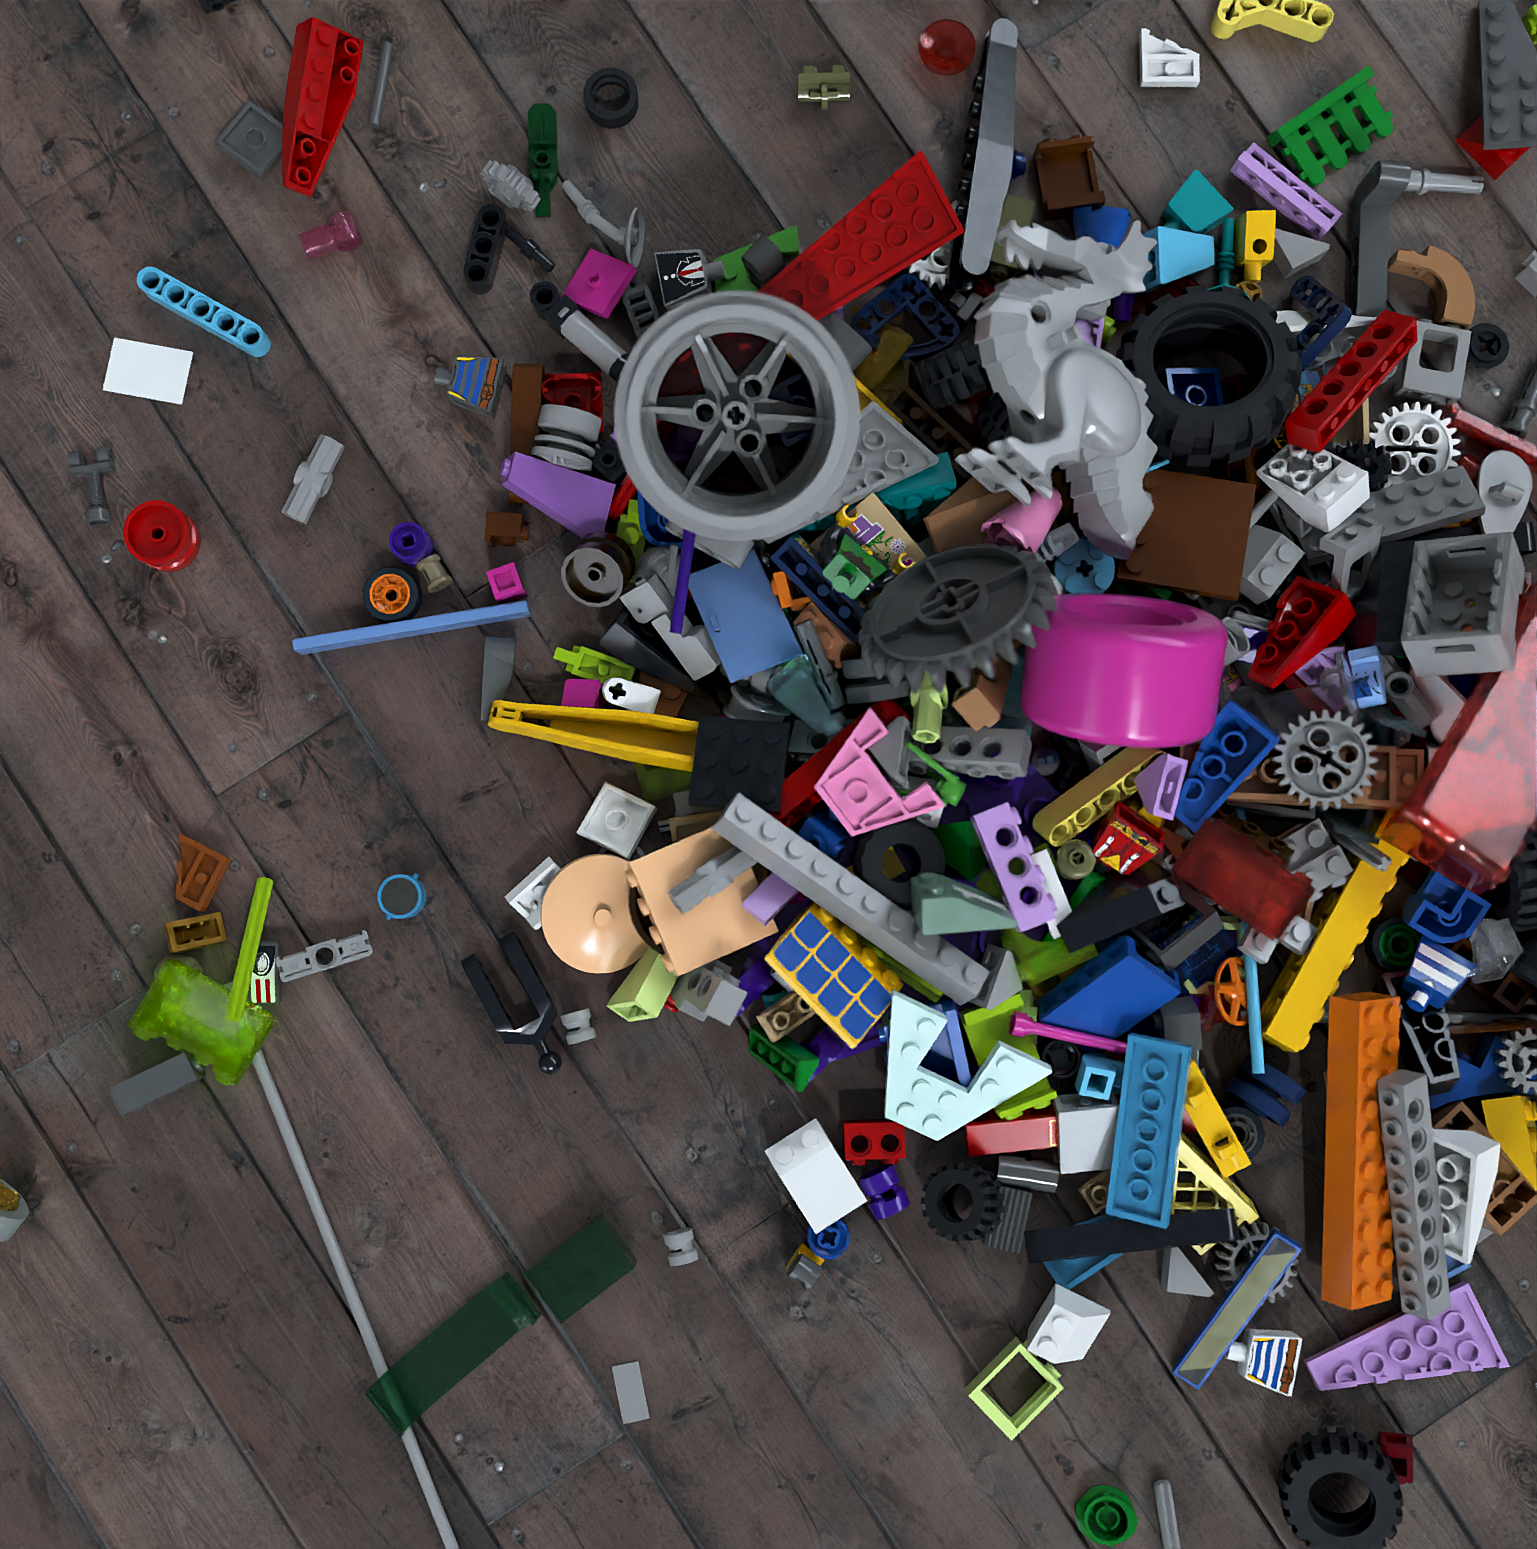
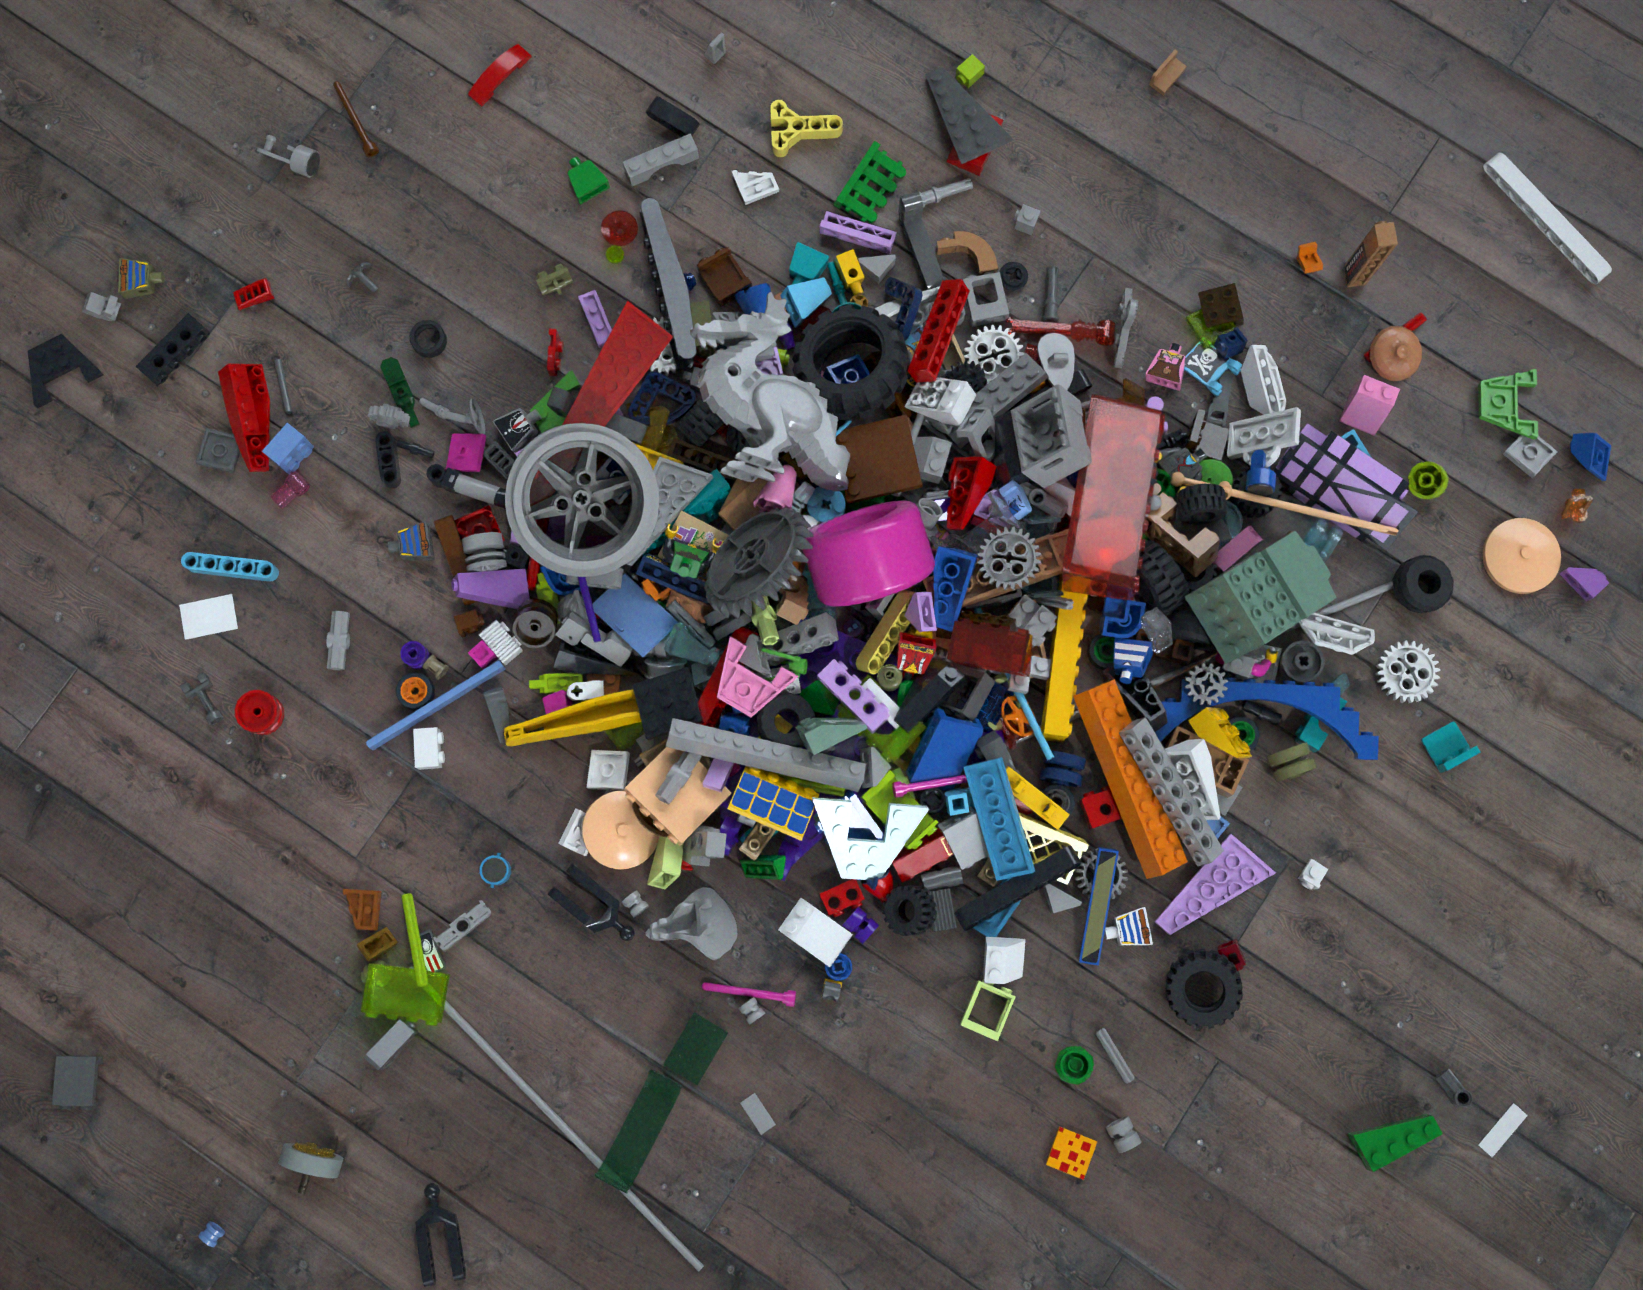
camera: 20 degrees left, 5 degrees down
(124, 1346) = (435, 1215): none -> black piece
(350, 175) = (288, 449): none -> medium blue brick
(377, 684) = (428, 748): none -> white brick
(539, 575) = (501, 642): none -> white brick
(660, 1094) = (702, 921): none -> light grey animal
(737, 1248) = (787, 997): none -> dark pink piece
(783, 185) = (556, 346): none -> red wing
(861, 162) = (596, 316): none -> lavender tile
(925, 83) = (615, 254): none -> clear neon green plate
(932, 1150) = (879, 886): none -> red hat
(1285, 1158) = (1091, 808): none -> red brick

